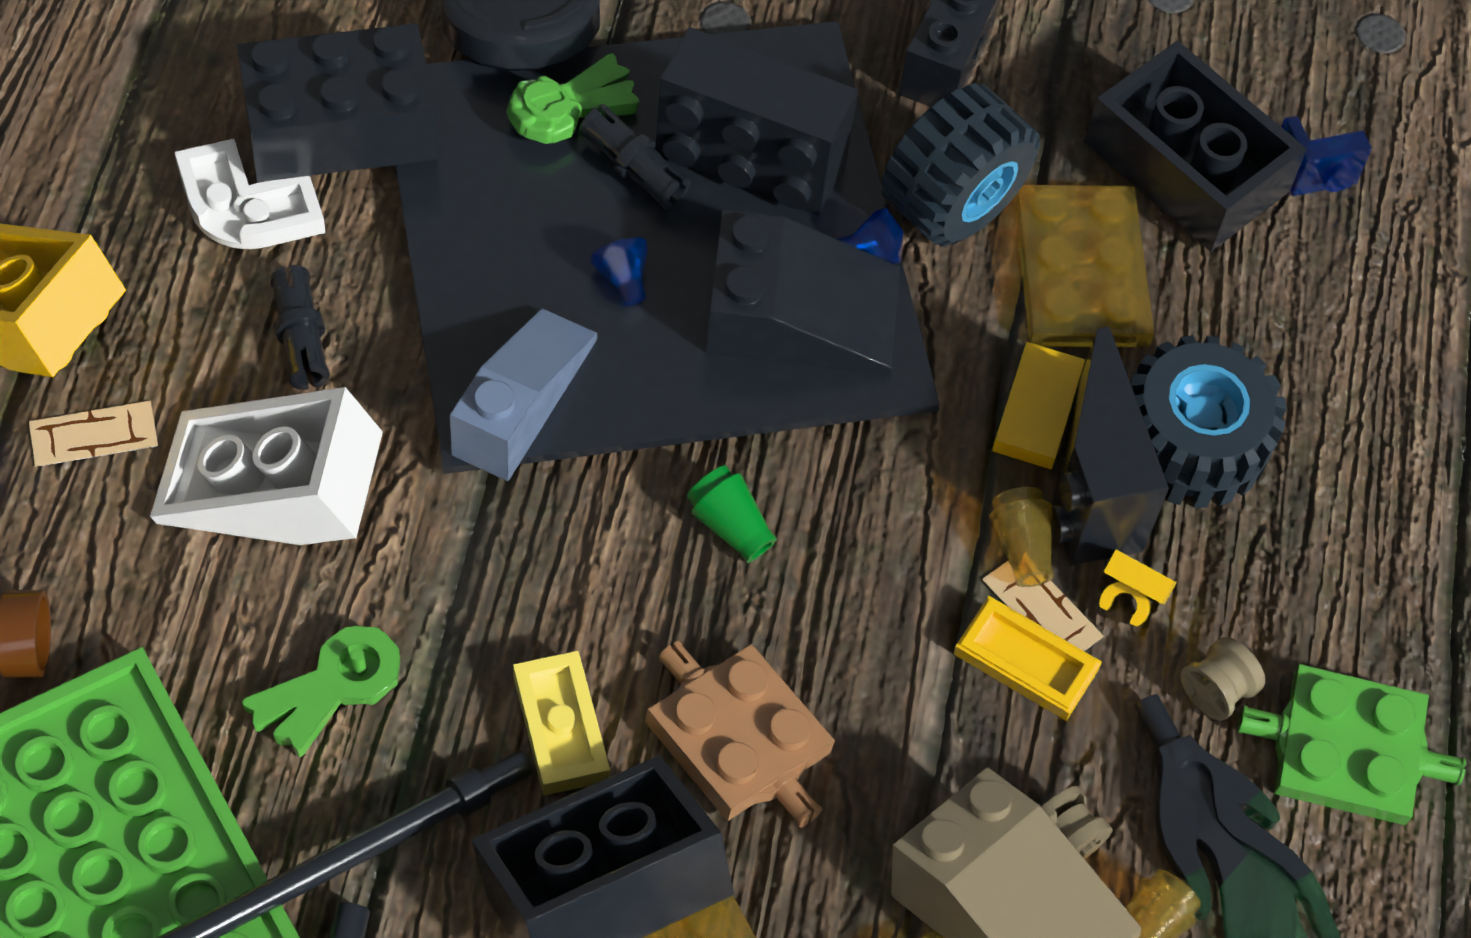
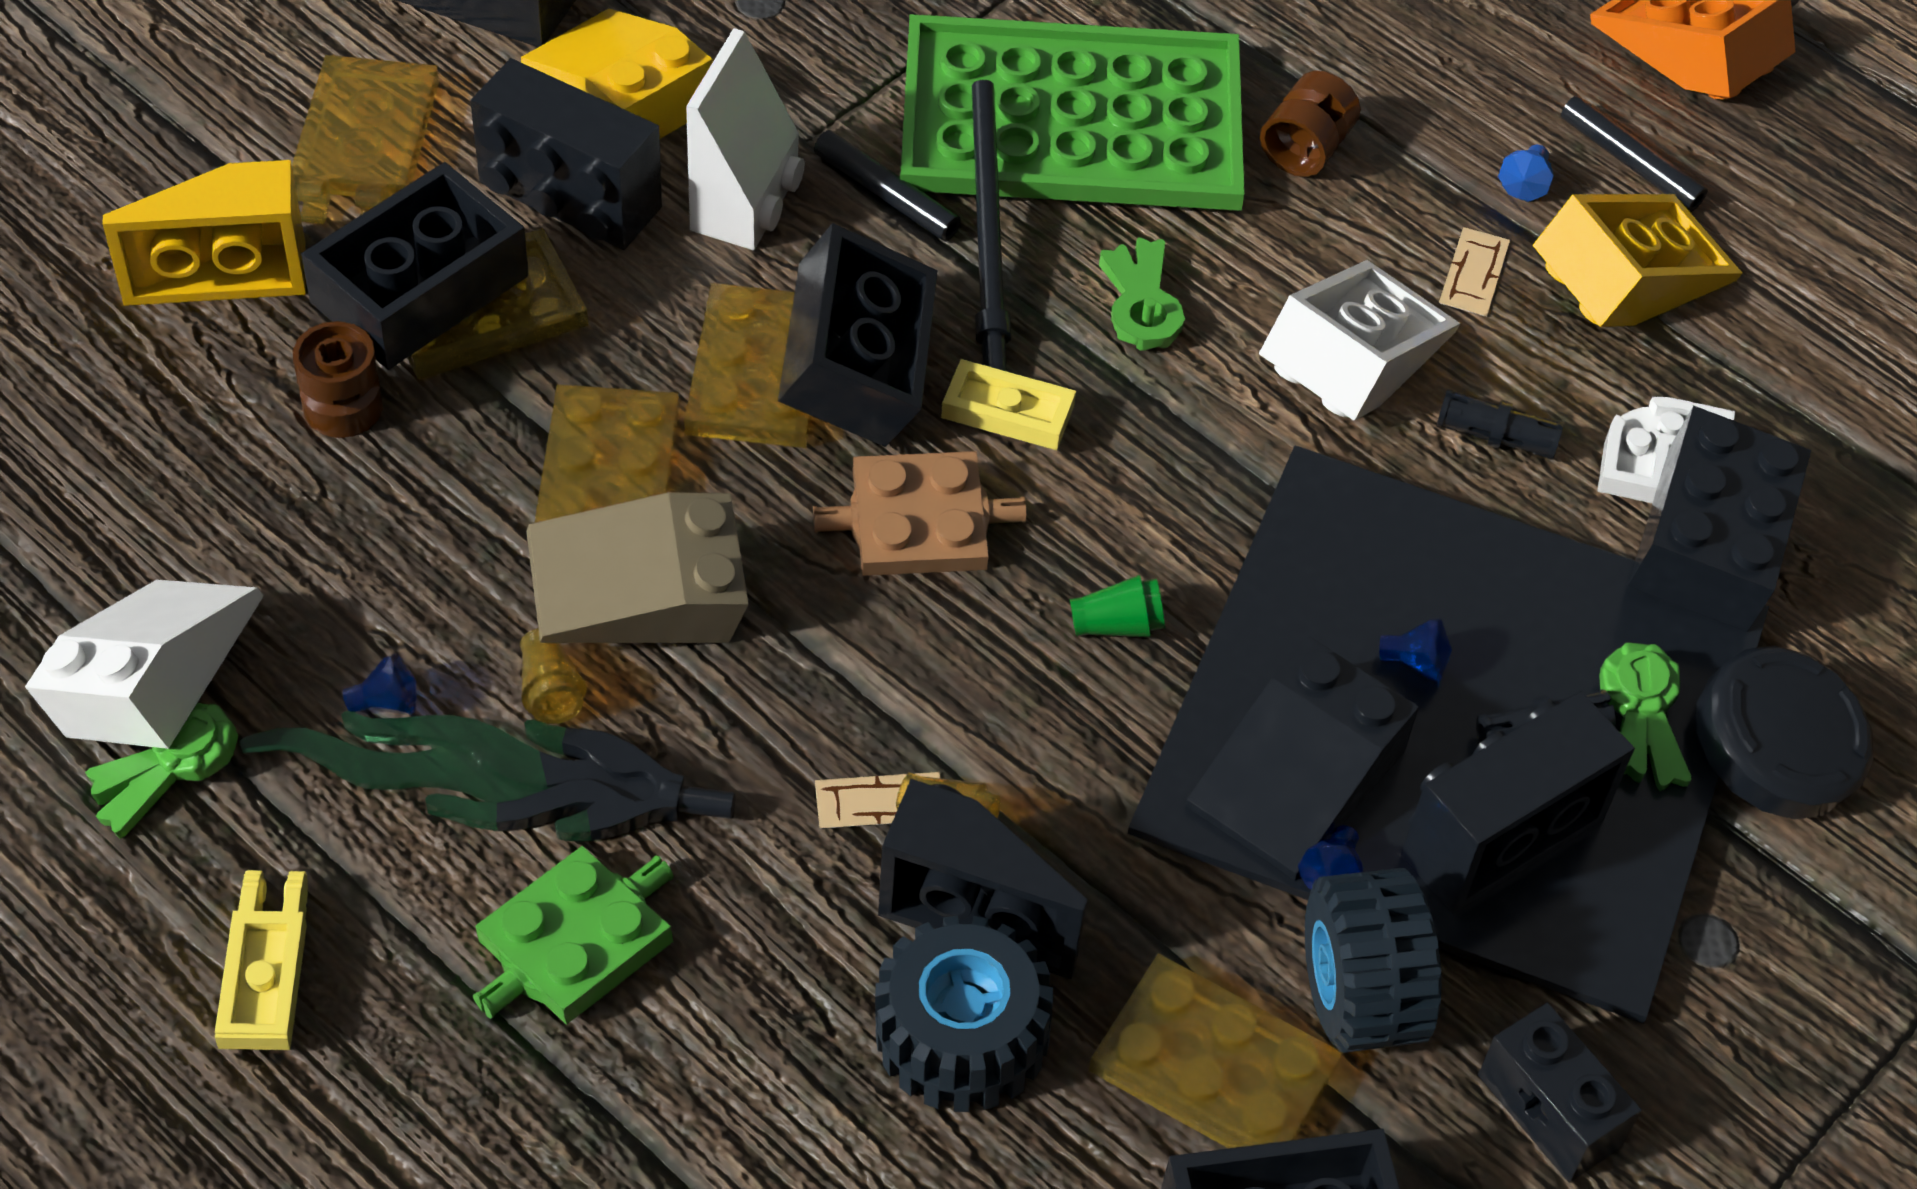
camera: 125 degrees right, 5 degrees down
(517, 393) = (1331, 507): sand blue slope -> none
(1027, 658) = (838, 747): yellow tile -> none
(1038, 405) = (1108, 936): yellow tile -> none
(1076, 822) = (659, 666): dark tan wheel -> none
(1139, 582) = (843, 862): yellow tile -> none
(1222, 678) = (705, 863): dark tan wheel -> none

